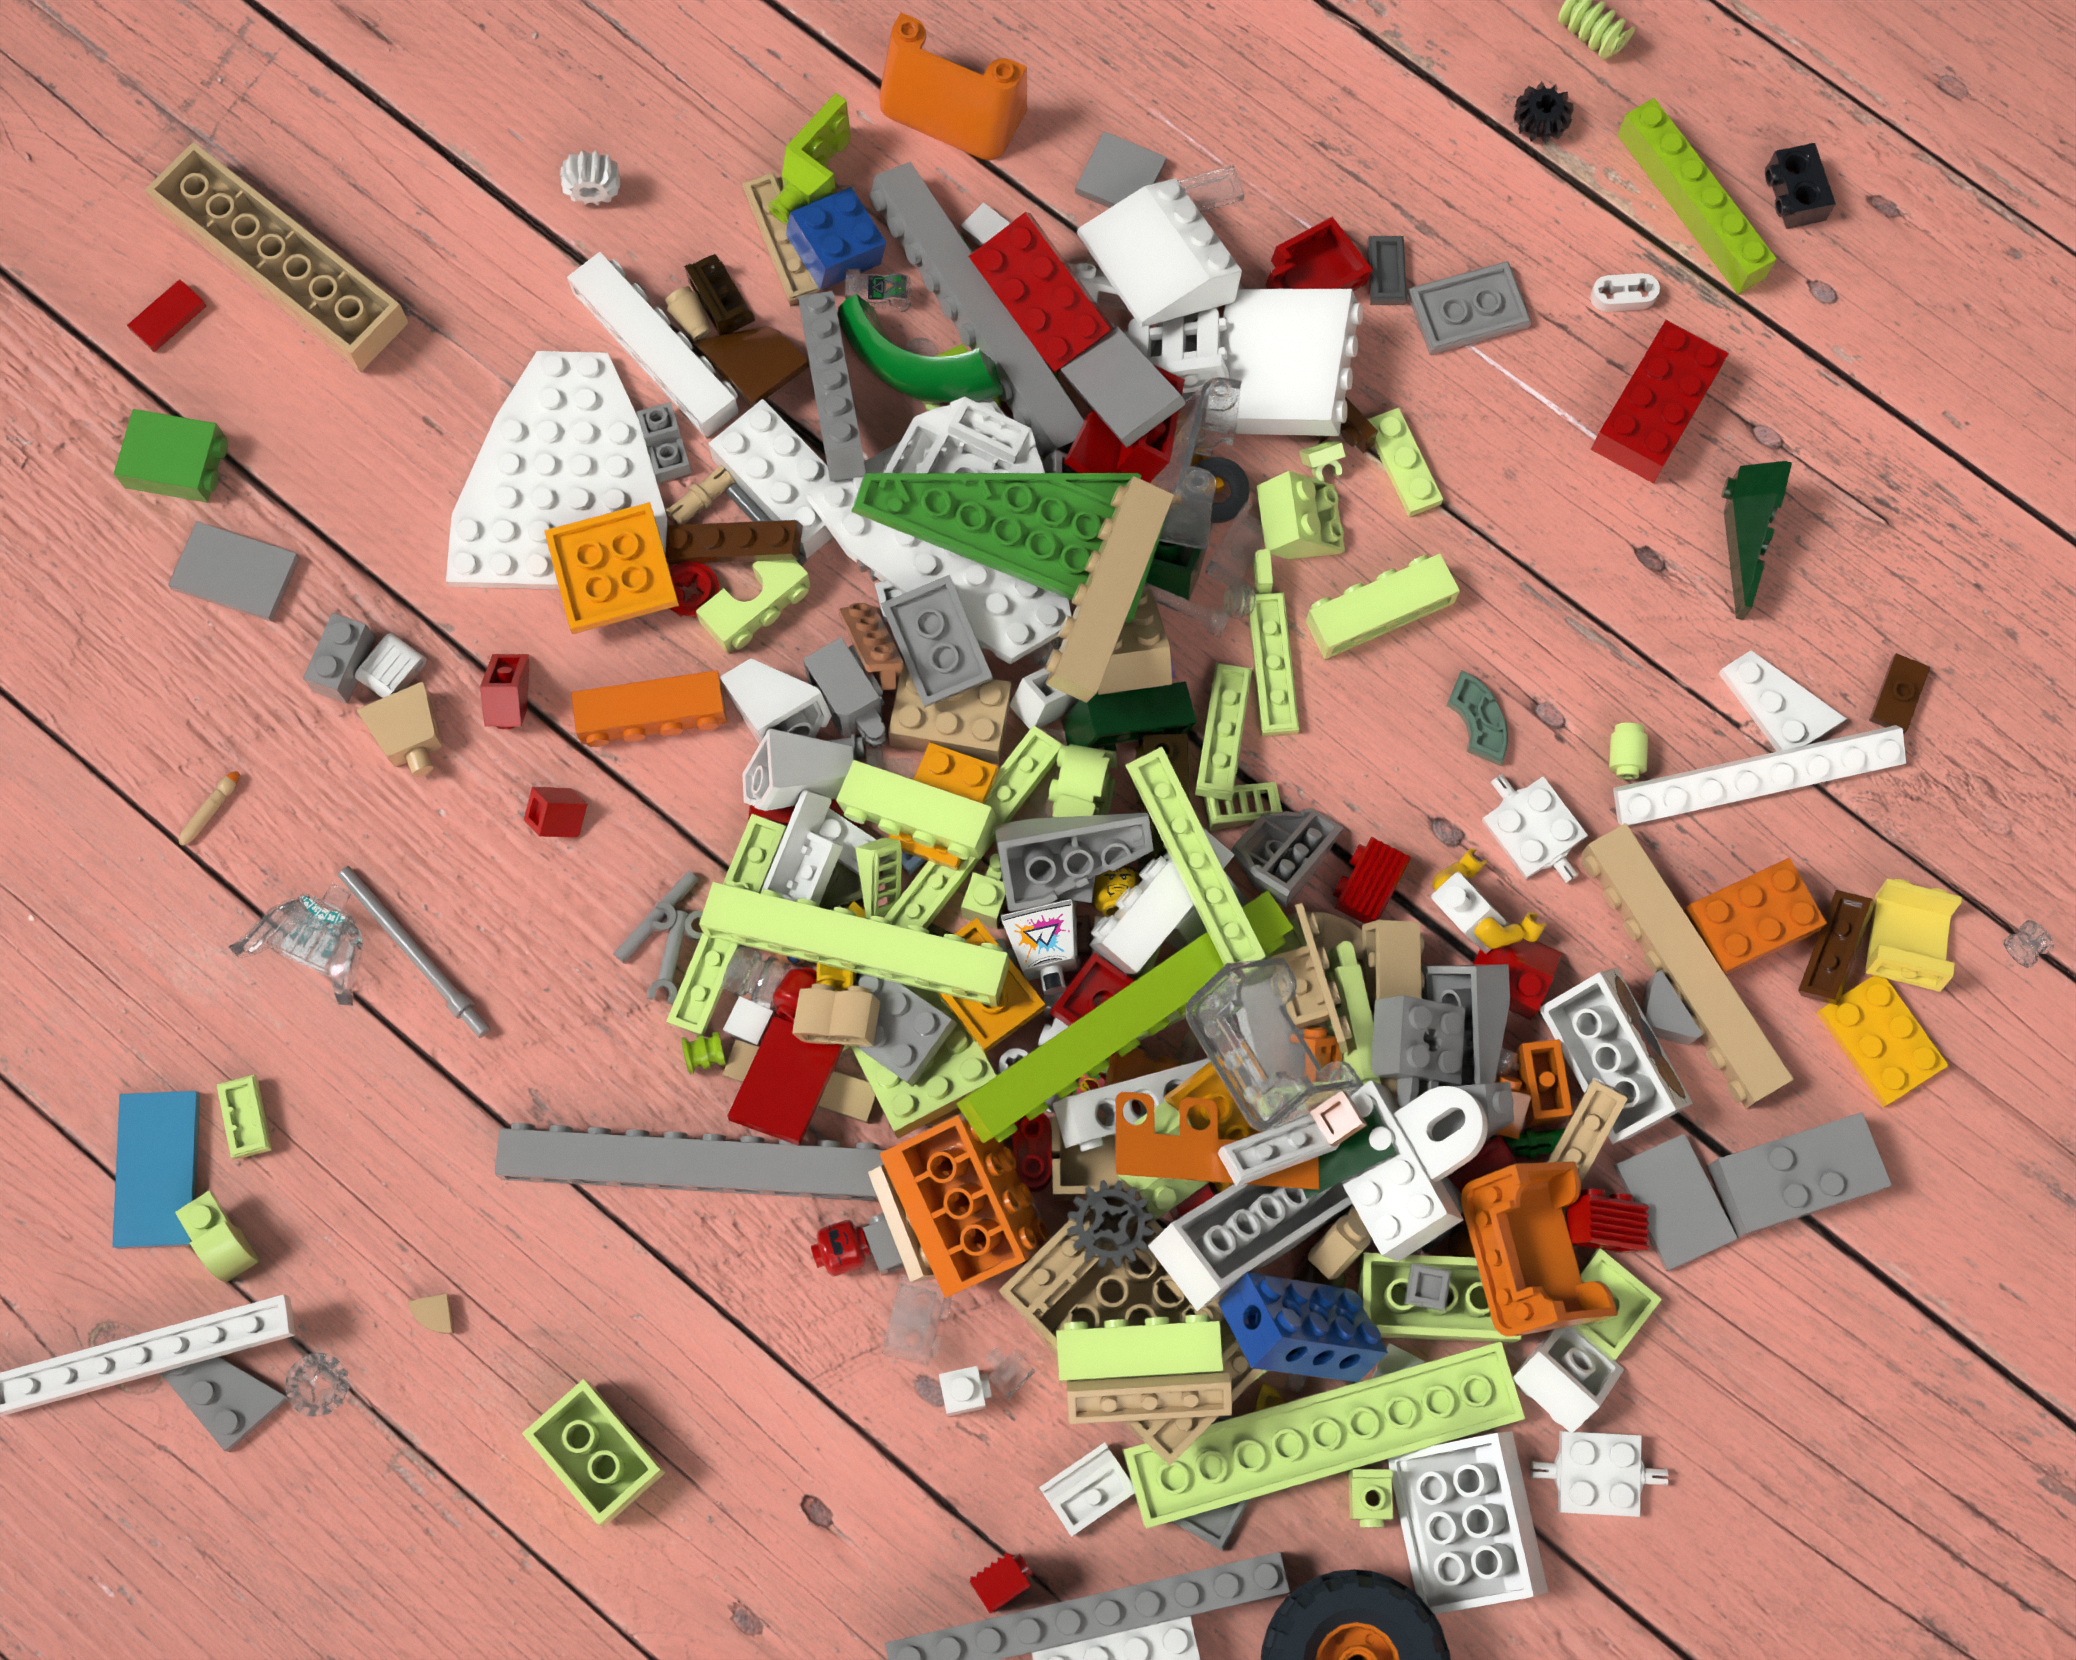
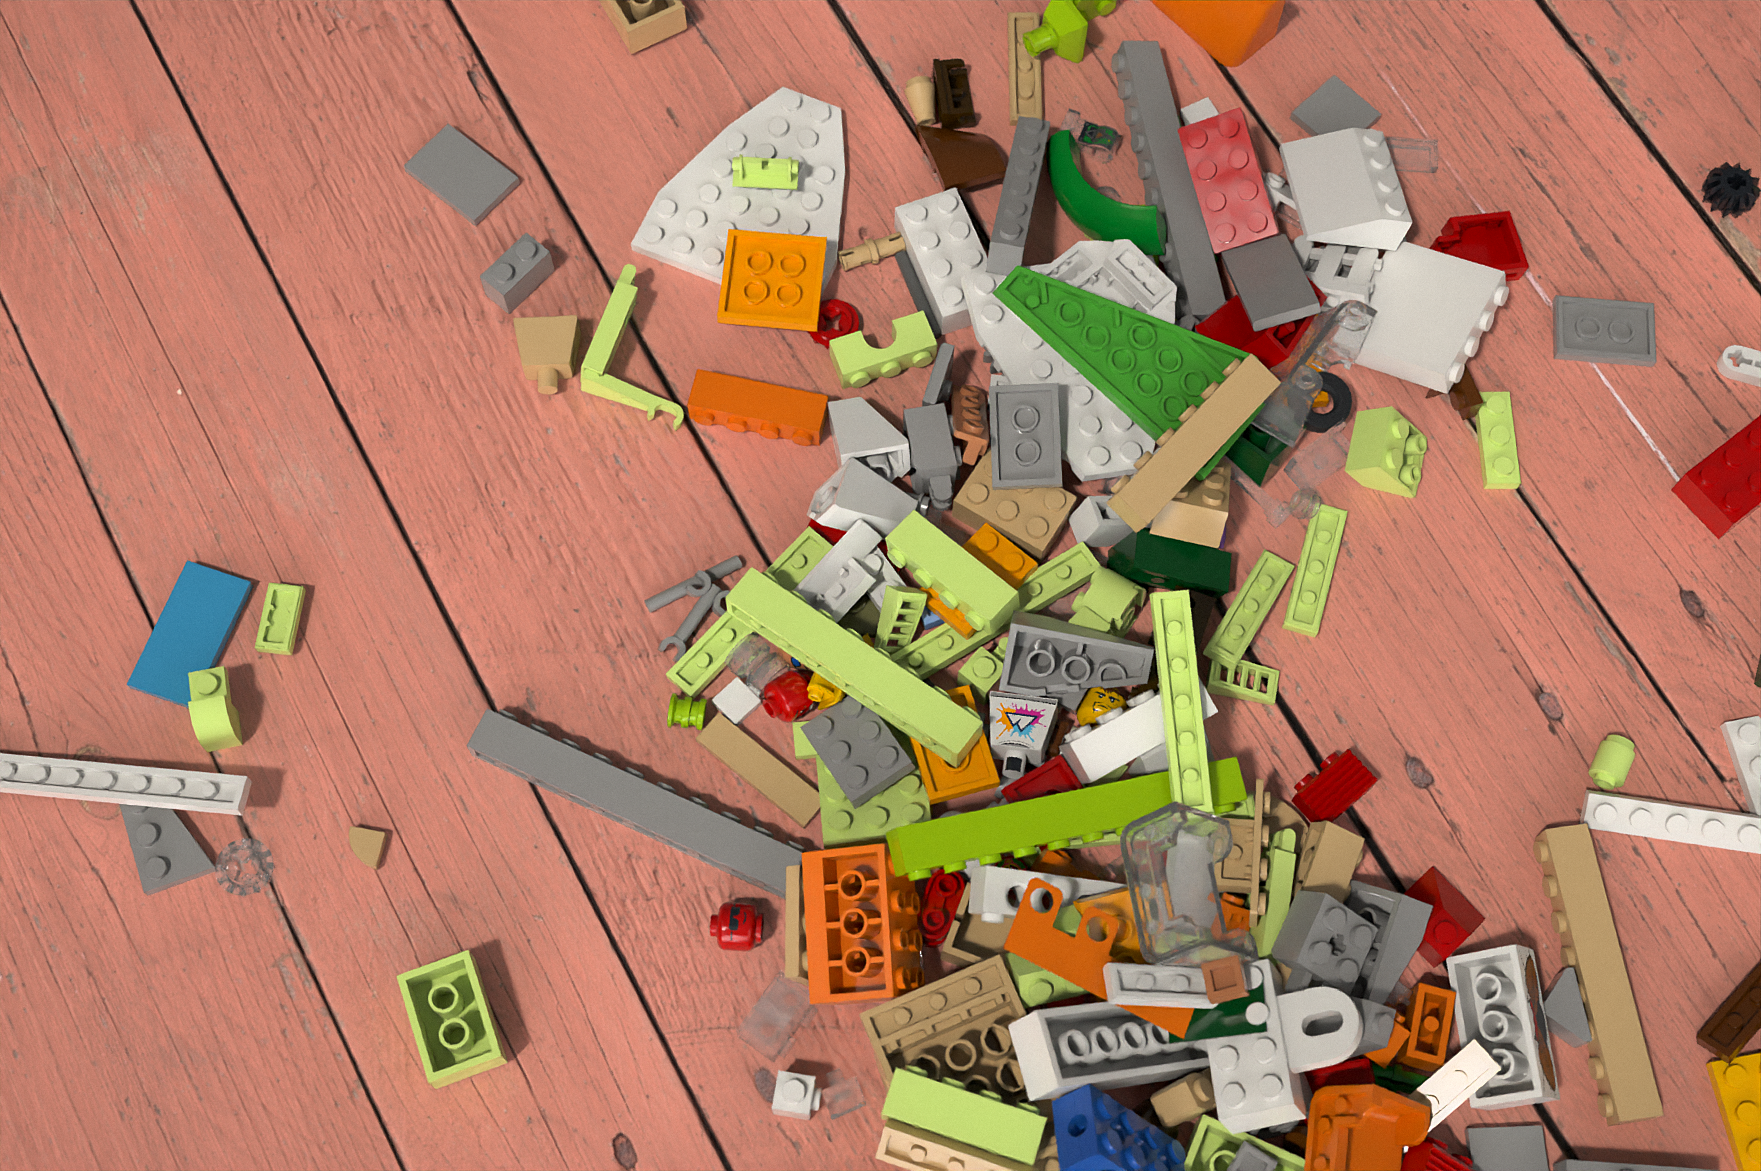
camera: 20 degrees right, 5 degrees down
(171, 455) = (449, 64): bright green brick -> none
(210, 806) = (380, 344): tan piece -> none
(311, 934) = (400, 489): clear torso -> none
(390, 666) = (556, 295): white piece -> none
(458, 1003) = (497, 592): light grey bar -> none
(464, 706) = (603, 349): none -> yellowish green hinge
(505, 690) = (643, 350): red slope -> none
(555, 812) = (644, 464): red panel -> none
(557, 454) = (765, 172): none -> yellowish green hinge
(653, 344) = (882, 115): white brick -> none
(664, 442) = (859, 197): light grey slope -> none
(733, 541) = (884, 296): reddish brown plate -> none
(784, 1083) = (747, 763): red tile -> none
(827, 616) = (939, 384): none -> light grey plate
(835, 237) = (1069, 78): blue brick -> none
(836, 1016) = (812, 722): tan brick -> none
(883, 1245) = (774, 939): light grey brick -> none
(1100, 1209) = (978, 977): dark grey gear -> none
(1263, 571) = (1335, 486): yellowish green tile -> none
(1285, 851) = (1265, 732): light grey wedge -> none
(1321, 455) = (1426, 407): yellowish green tile -> none
(1381, 605) = (1432, 553): yellowish green brick -> none
(1388, 275) = (1542, 275): dark grey tile -> none
(1473, 912) = (1418, 850): torso -> none
(1482, 718) = (1487, 684): sand green tile -> none
(1534, 828) = (1500, 798): white plate -> none
(1756, 916) = (1680, 954): orange brick -> none

